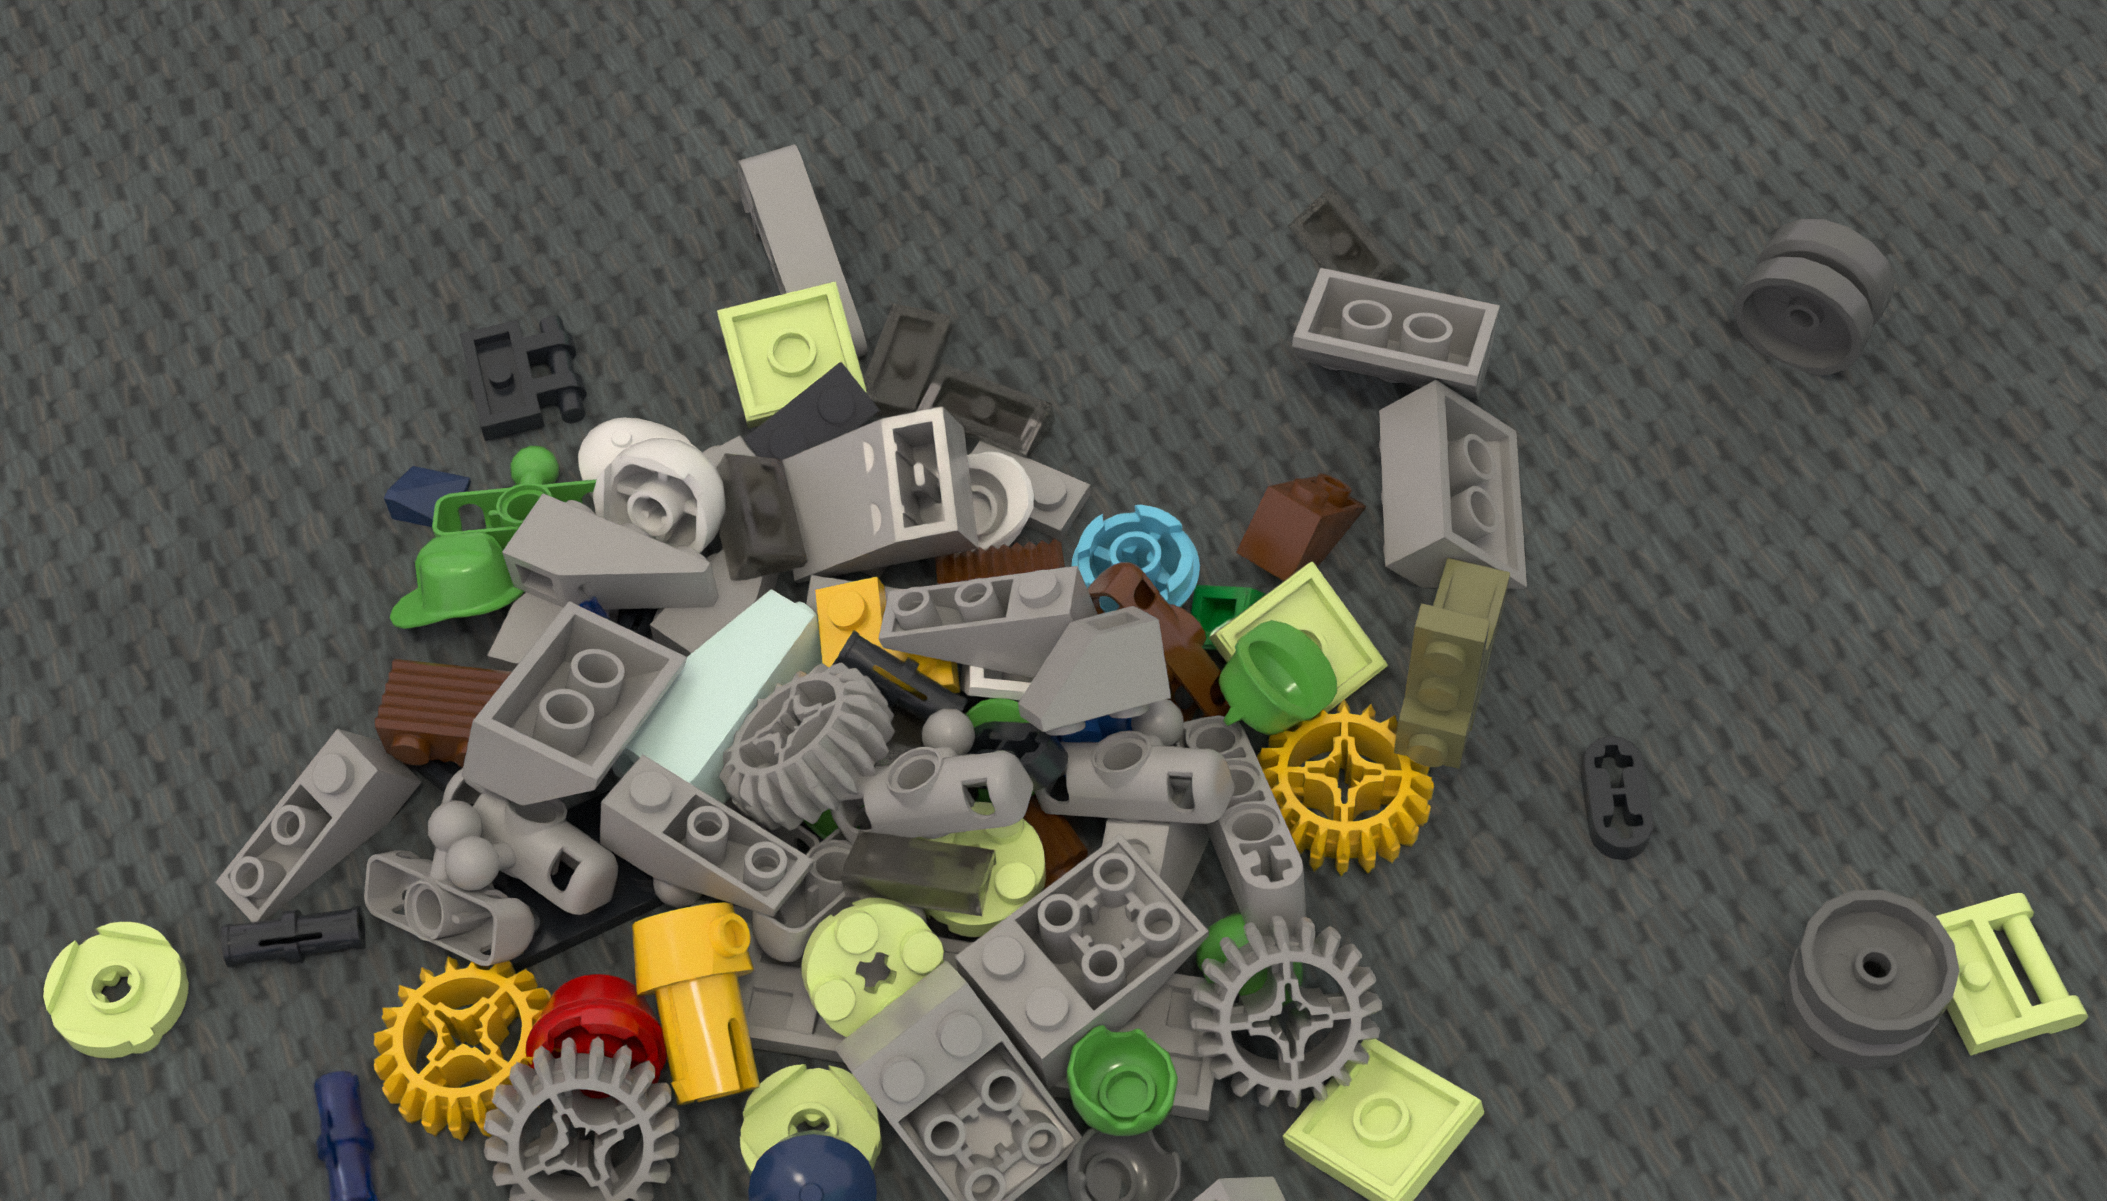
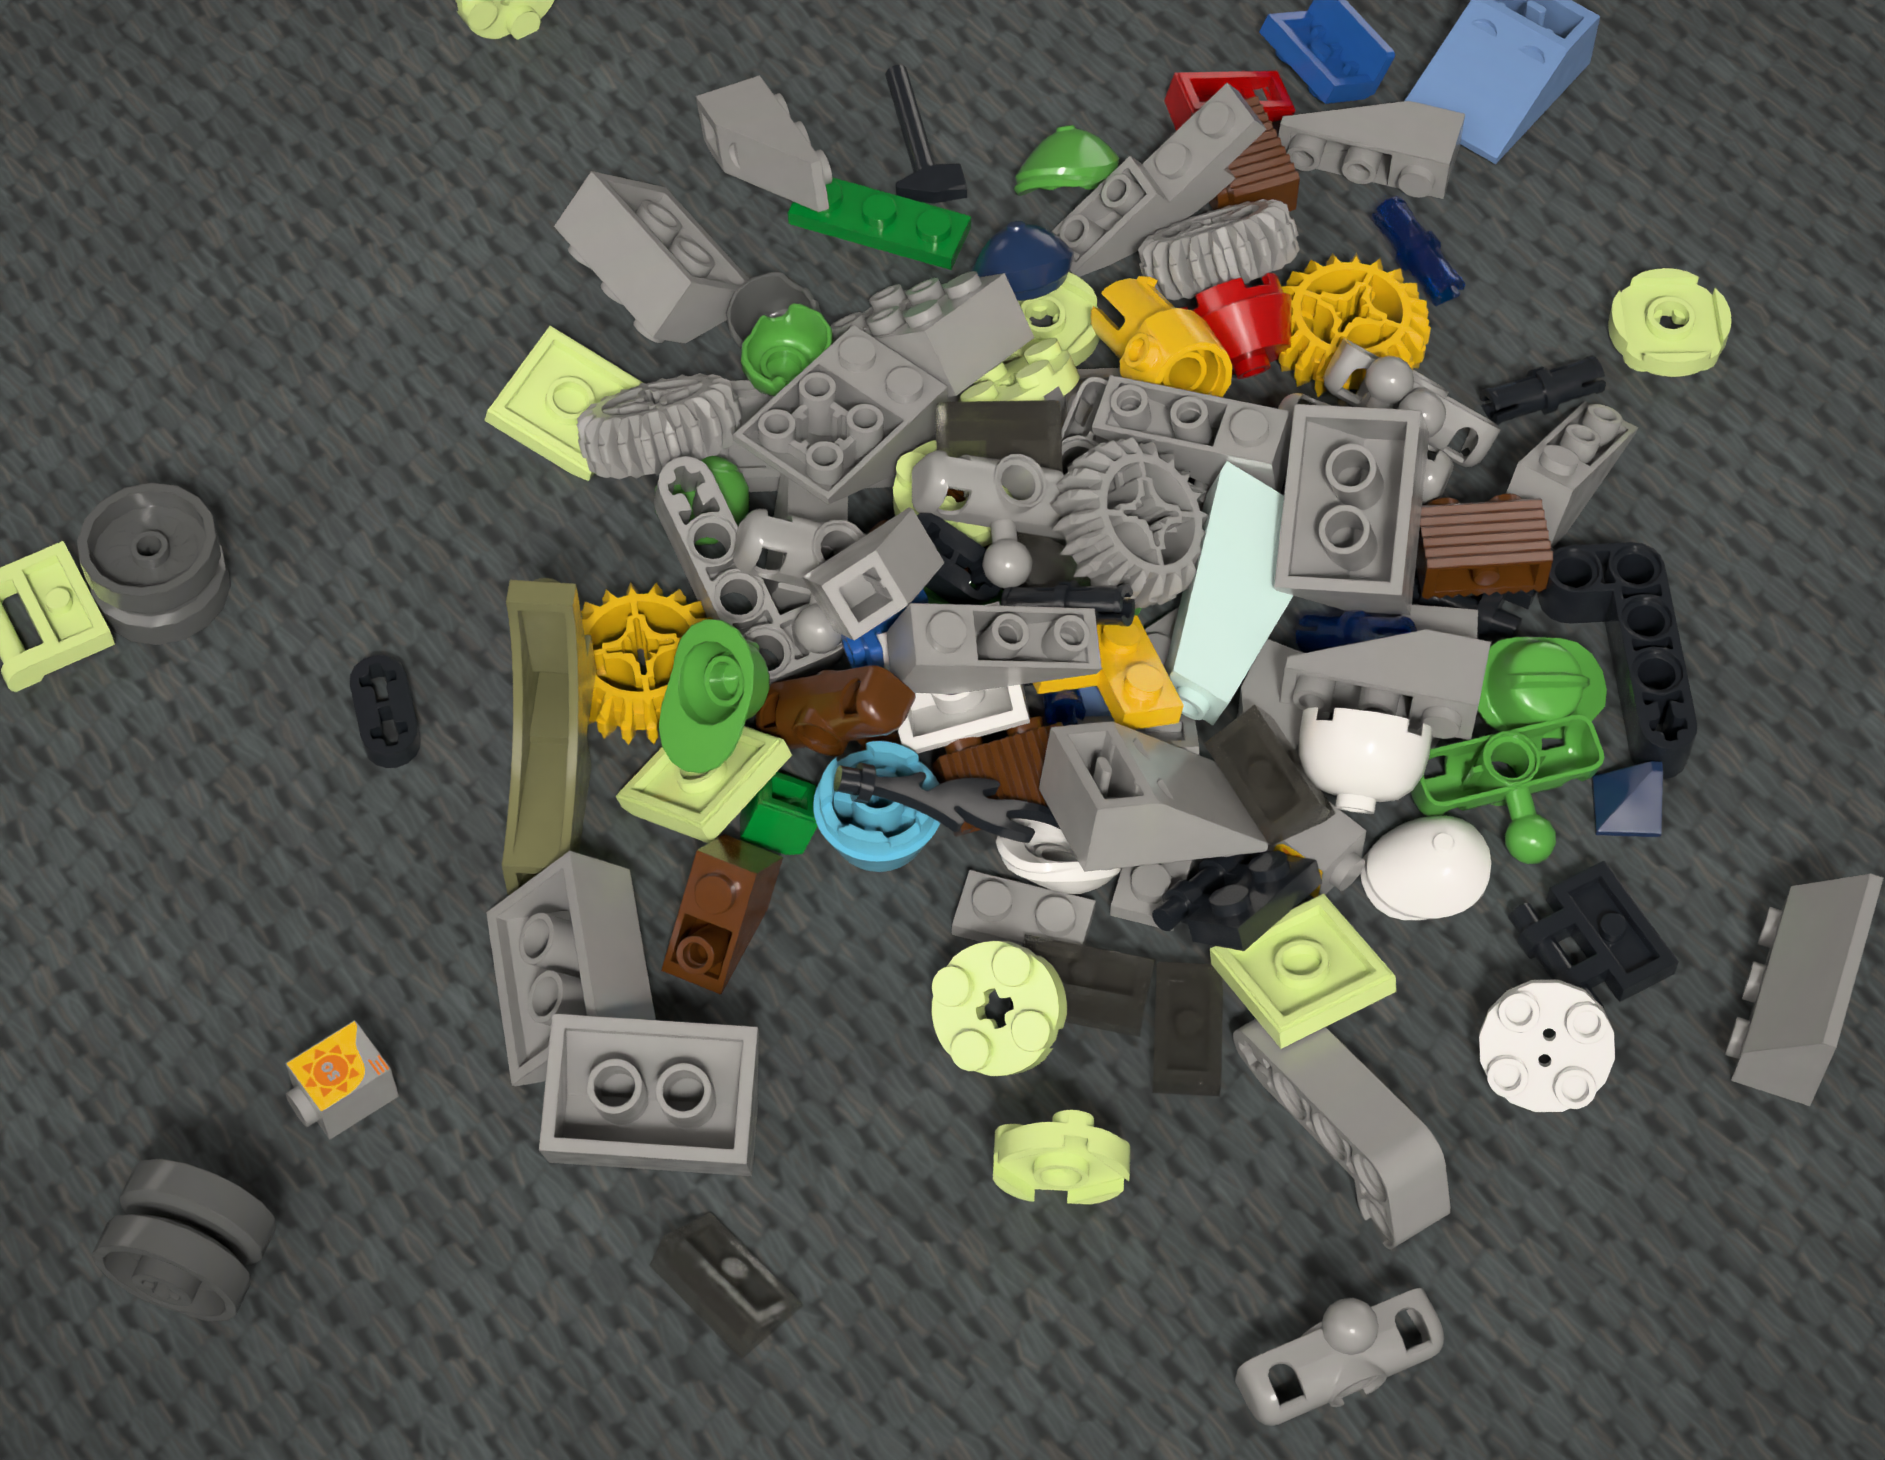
camera: 165 degrees right, 0 degrees up
(354, 609) = (1605, 595): none -> black beam
(362, 278) = (1803, 986): none -> light grey slope
(599, 275) = (1579, 1050): none -> white plate
(867, 96) = (1341, 1355): none -> light grey piece
(1024, 237) = (1061, 1156): none -> yellowish green plate
(1059, 529) = (948, 802): none -> black piece
(1071, 387) = (964, 991): none -> yellowish green plate
(1672, 435) = (339, 1081): none -> brick

